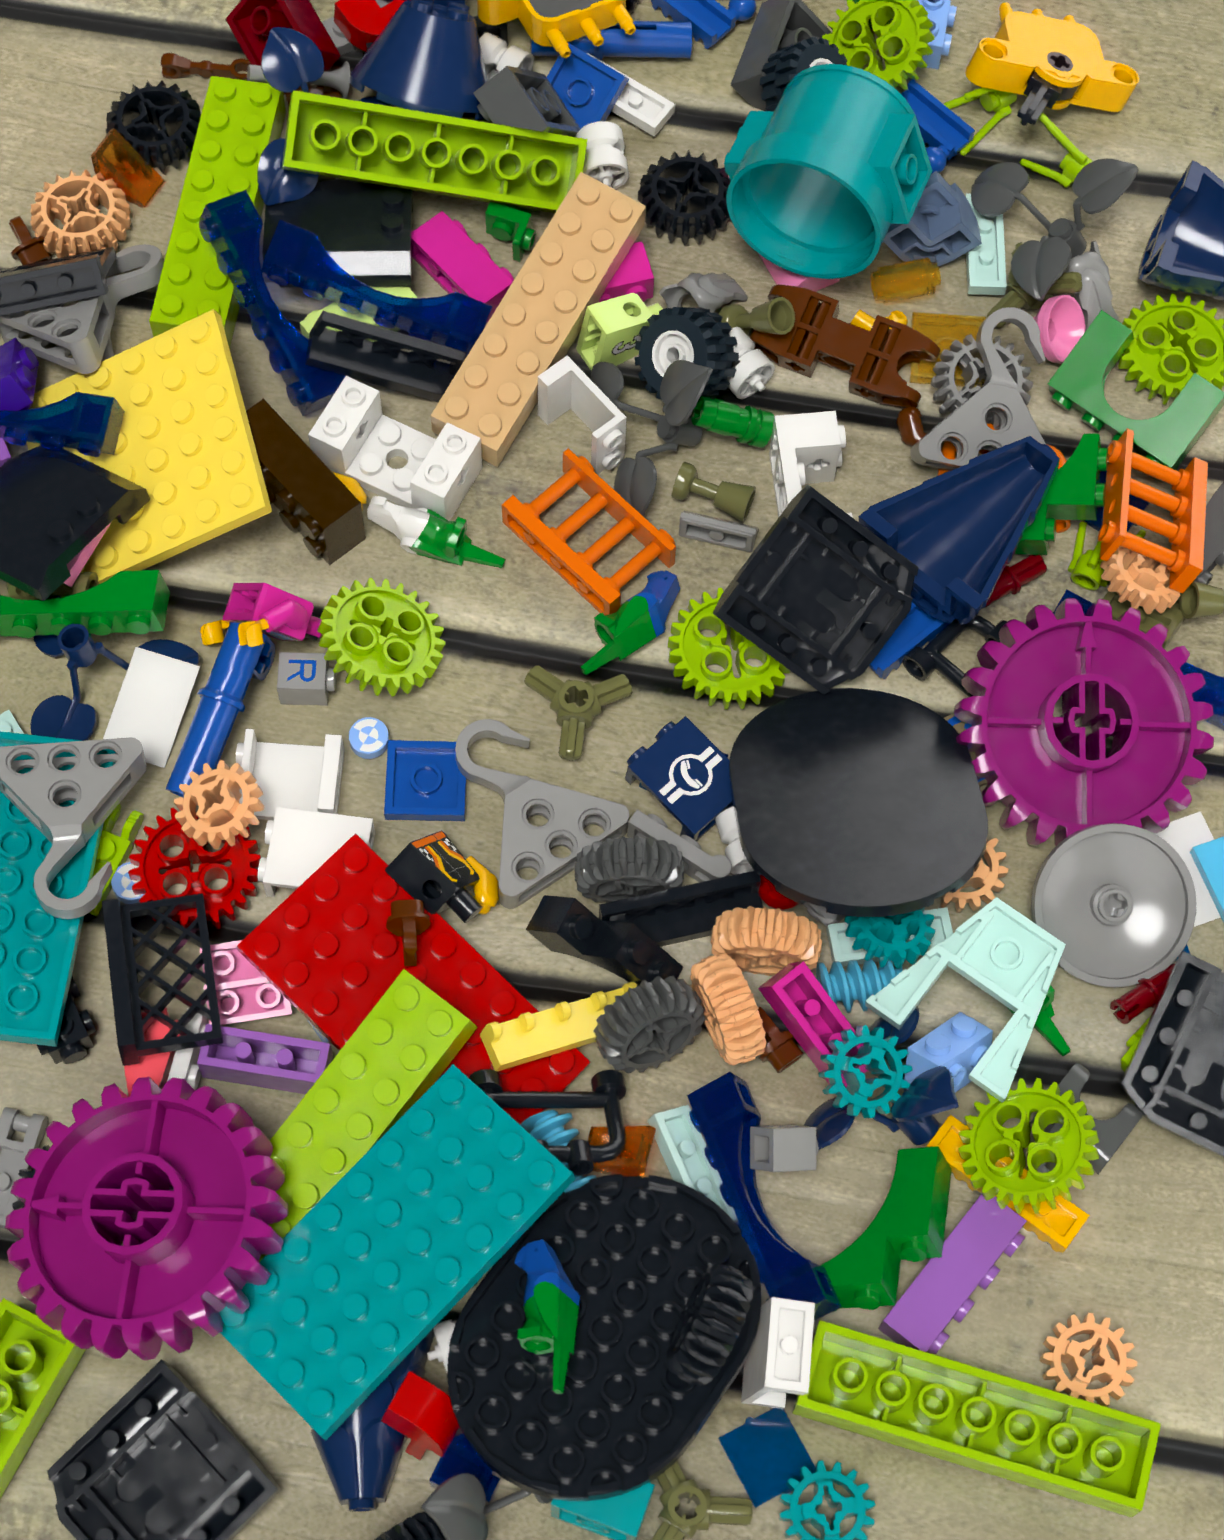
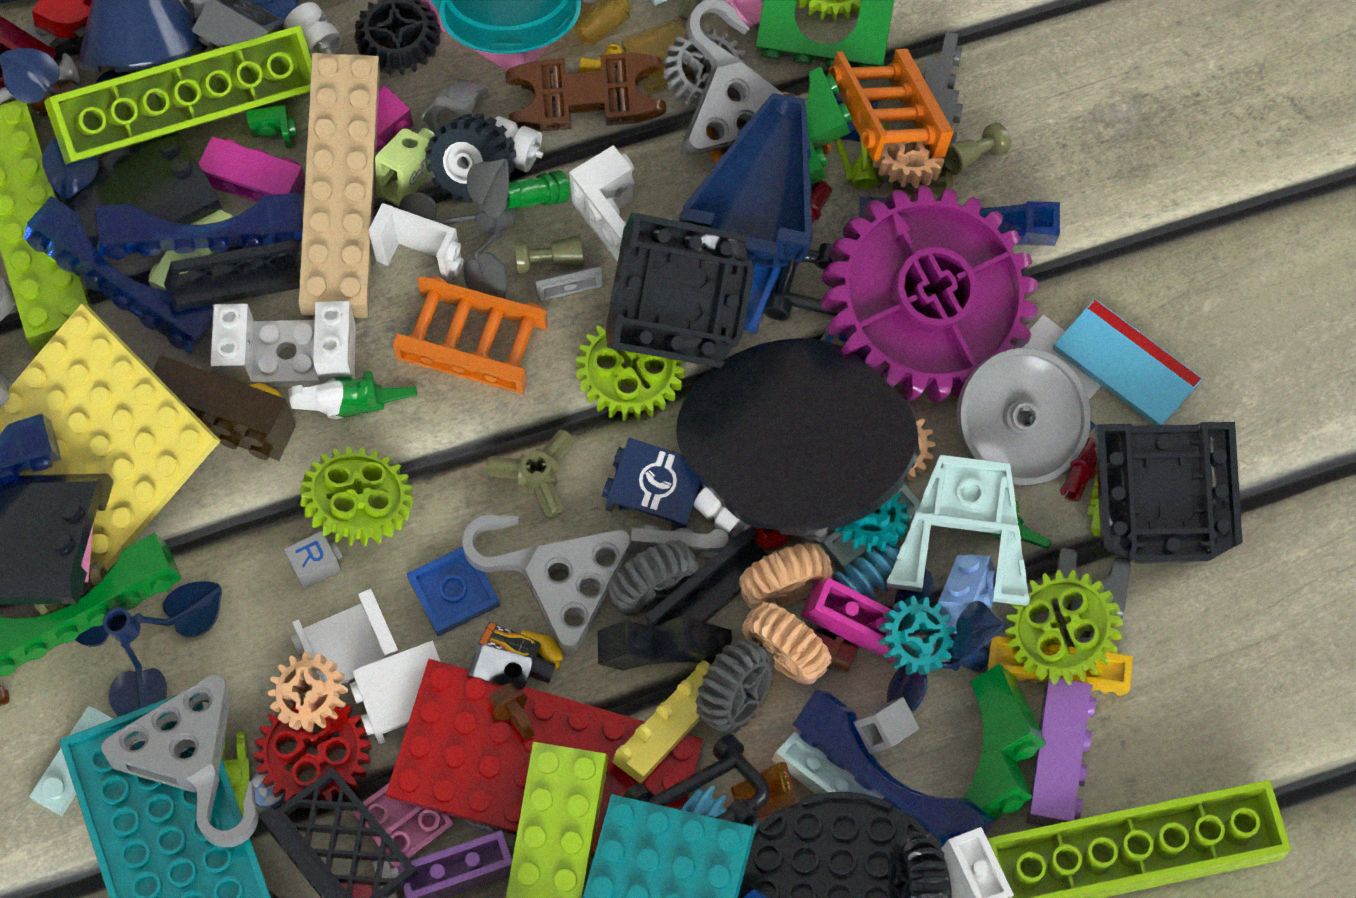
camera: 25 degrees left, 0 degrees up
(152, 703) = (201, 640): white sticker -> none
(220, 704) = (257, 574): blue piece -> none
(264, 610) = (254, 524): dark pink torso -> none
(368, 738) = (389, 579): light blue tile -> none
(635, 621) = (545, 383): green animal -> none
(770, 317) = (519, 97): olive piece -> none
(910, 425) = (669, 129): reddish brown arm -> none
(1072, 1355) = (1205, 760): light nougat gear -> none

